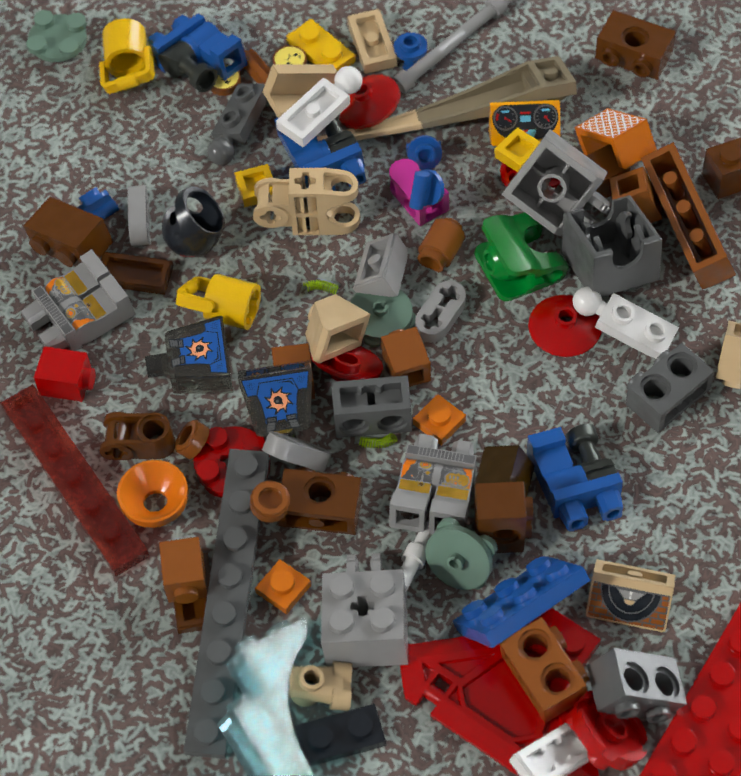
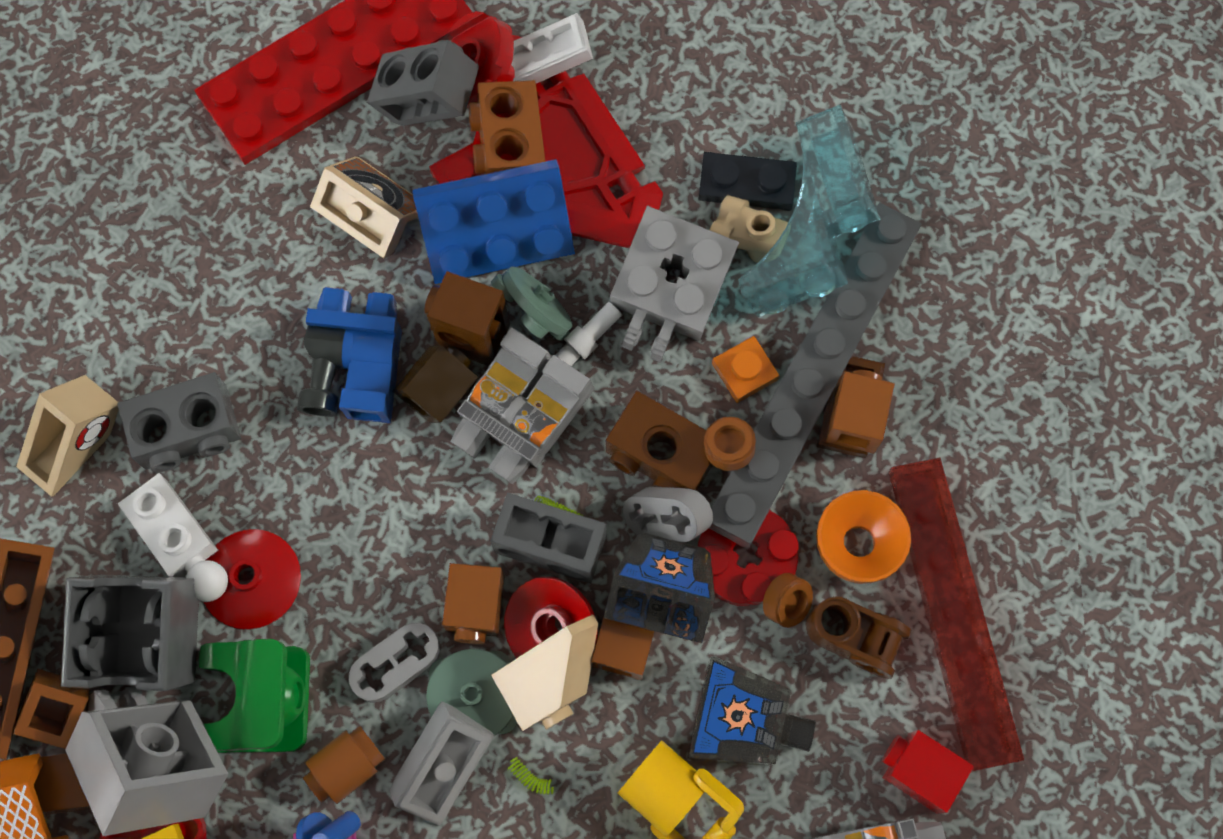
camera: 160 degrees left, 15 degrees up
(439, 419) = (470, 506): orange plate -> none

